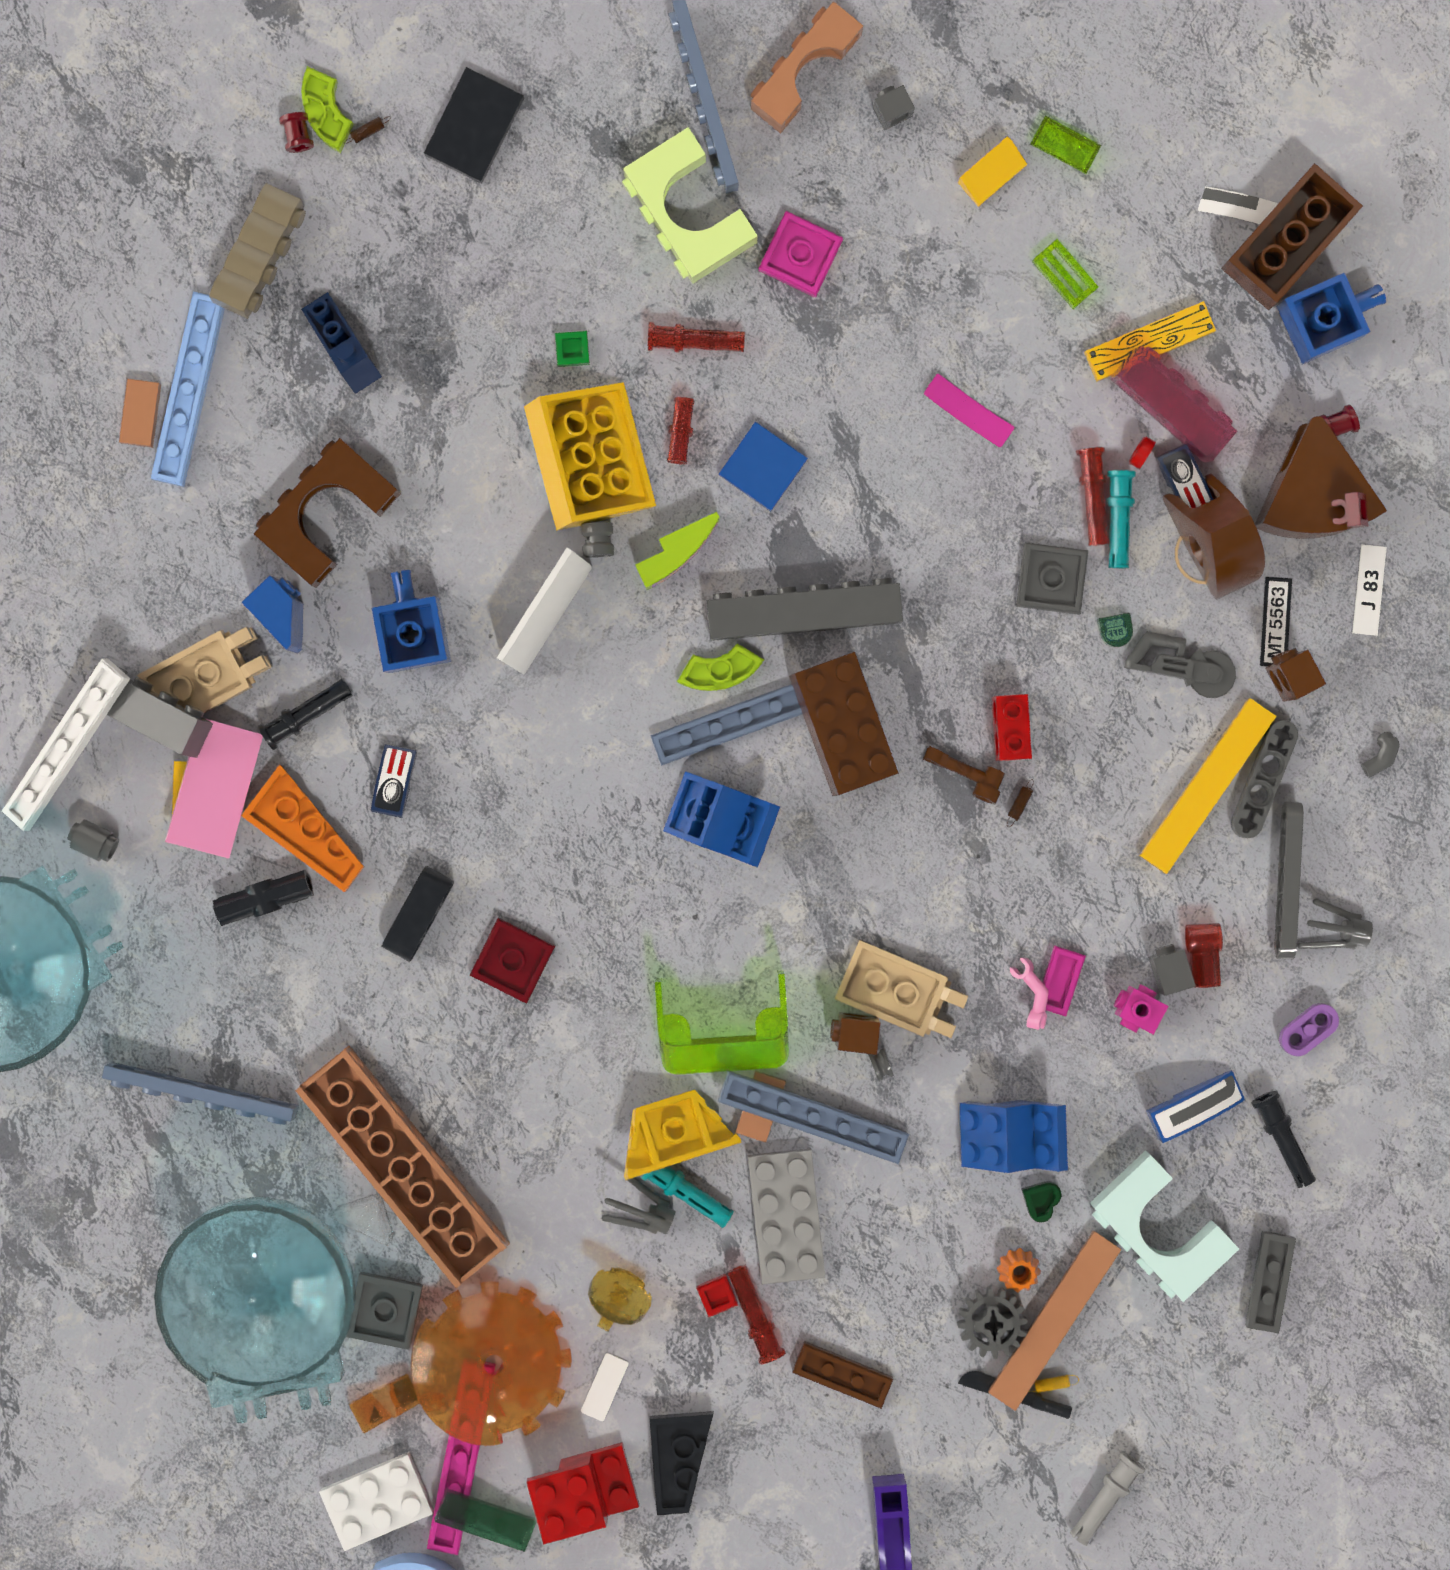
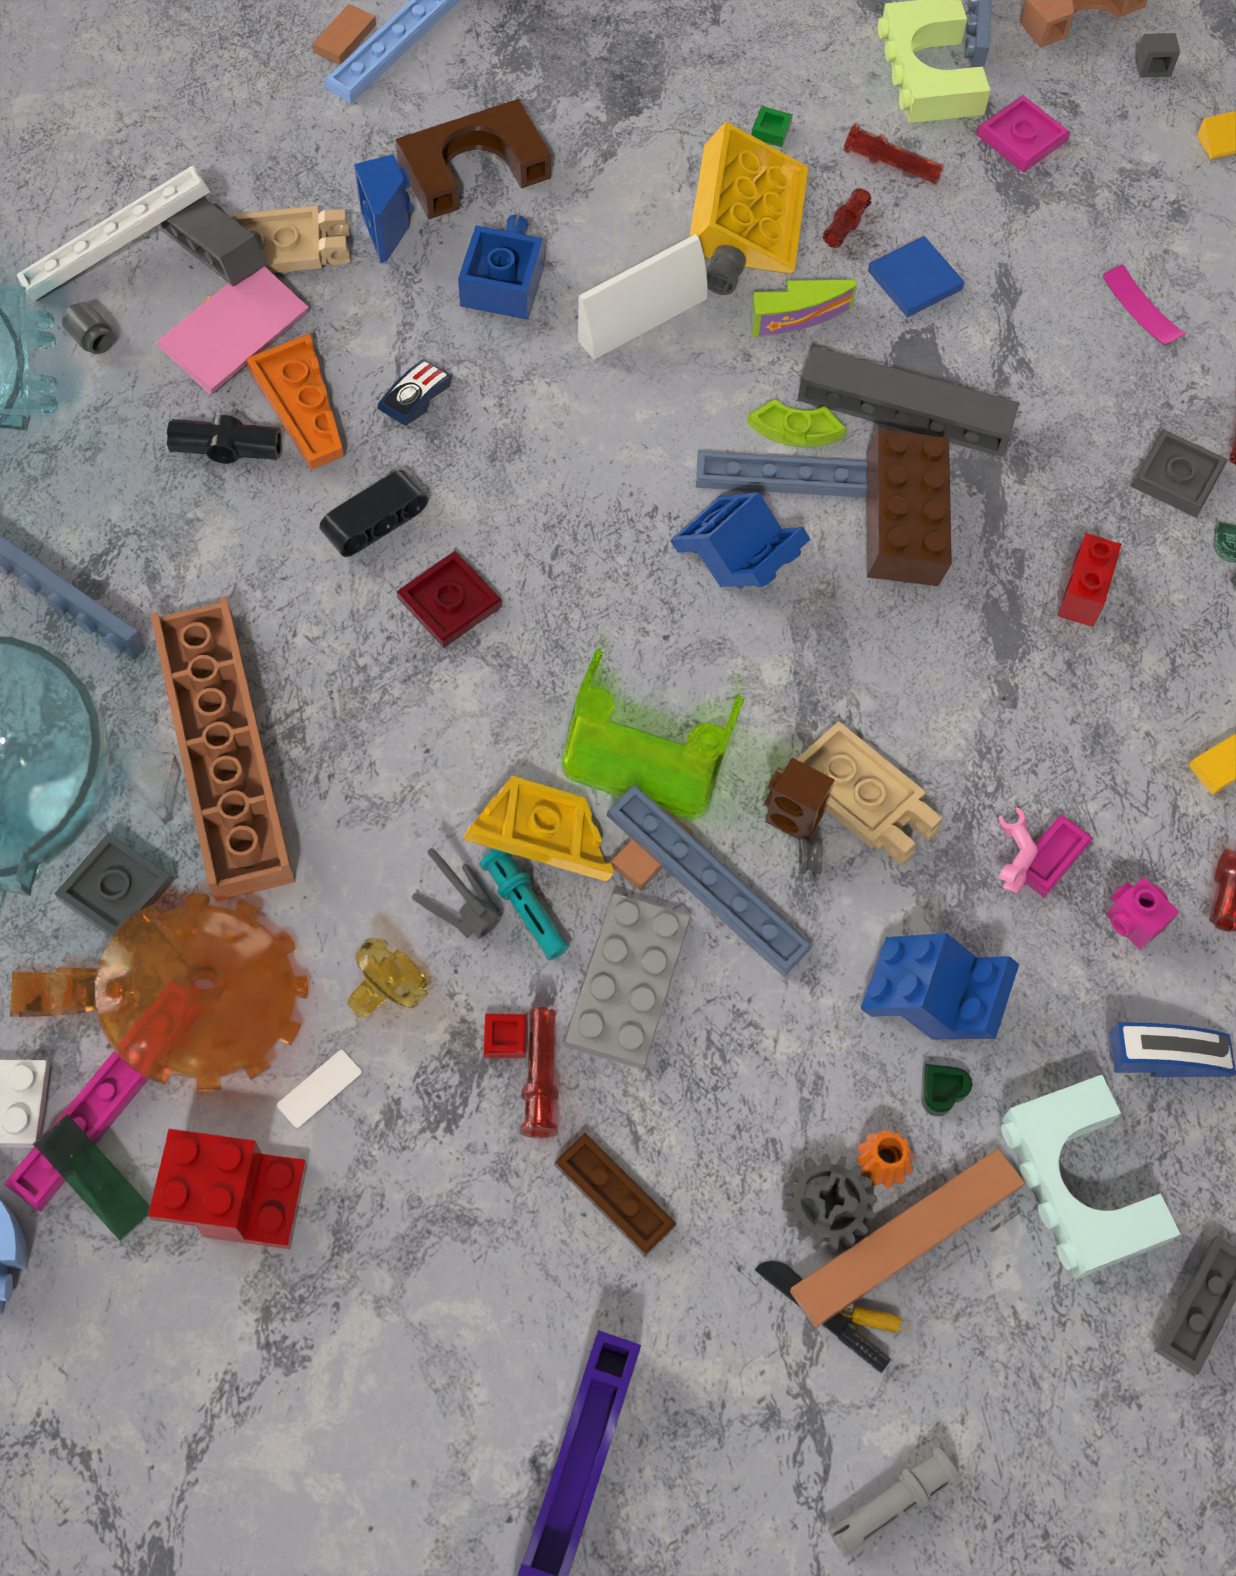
camera: 20 degrees right, 25 degrees down
(293, 720) = (342, 306): black pin -> none
(341, 343) = (559, 46): dark blue slope -> none
(677, 1454) = (364, 1205): black wing -> none
(987, 782) = (1041, 627): reddish brown brick -> none
(1020, 803) = (1071, 661): reddish brown piece -> none
(1171, 970) = (1192, 888): dark grey brick -> none

